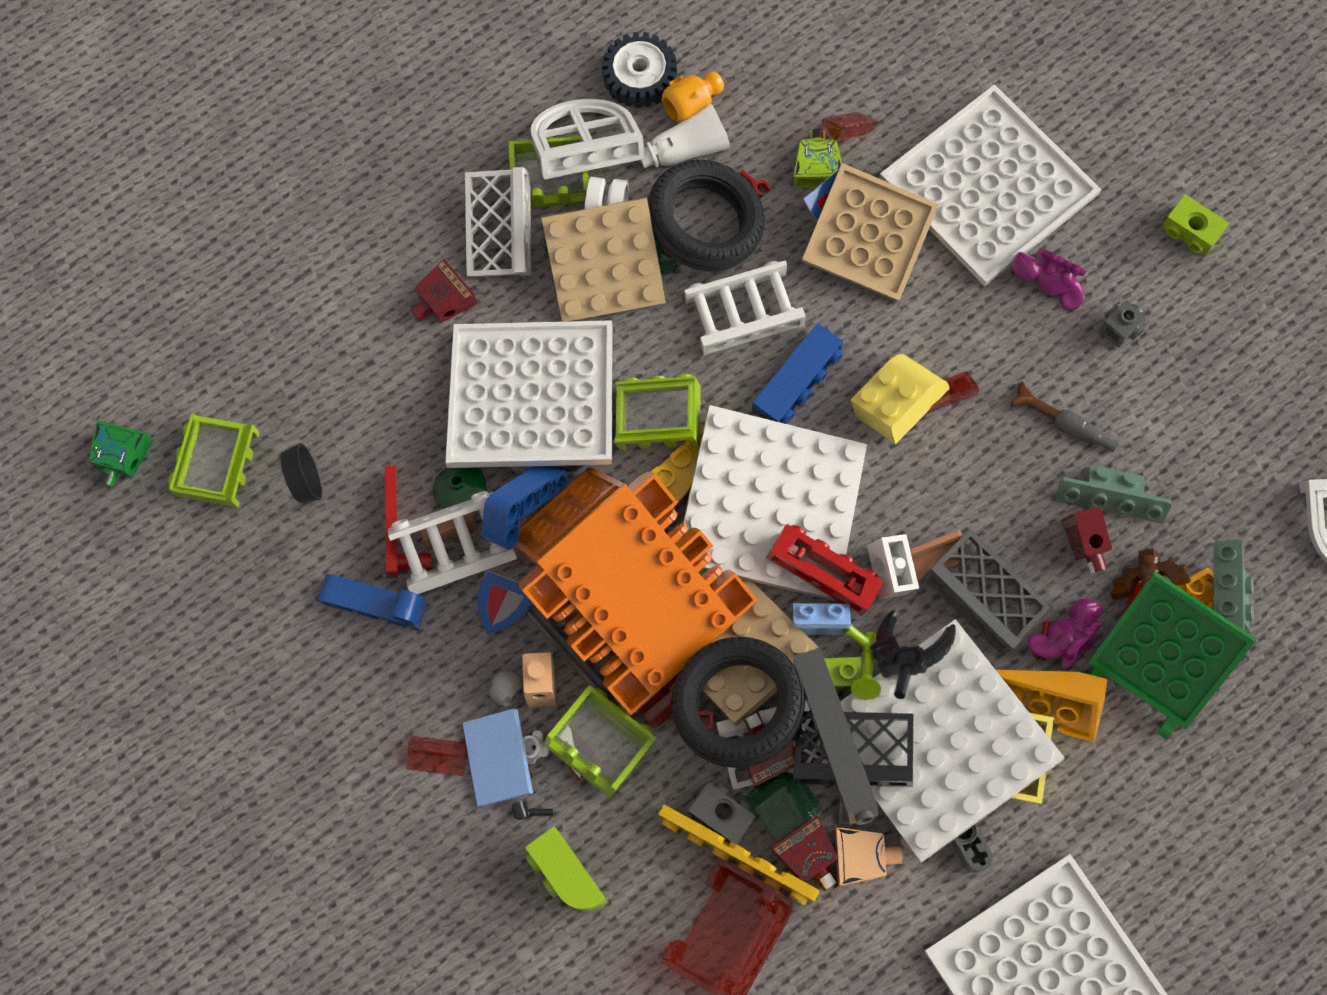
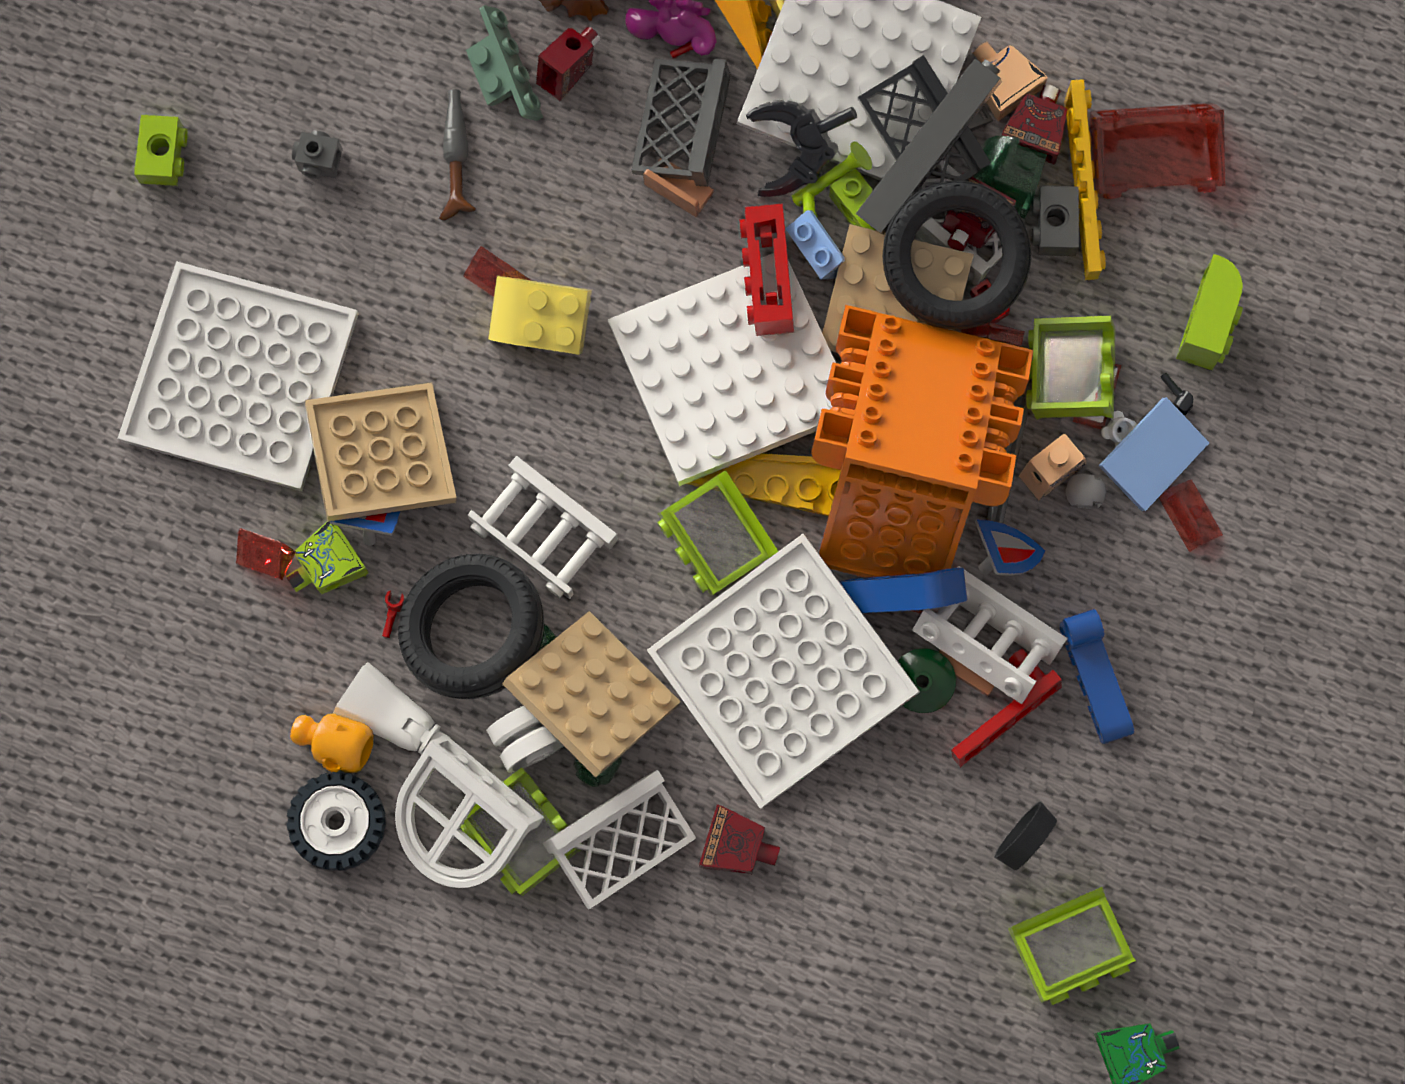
camera: 125 degrees left, 5 degrees up
(798, 375) = (581, 427): blue brick -> none
(894, 565) = (718, 214): white brick -> none
(1053, 275) = (306, 250): magenta animal -> none

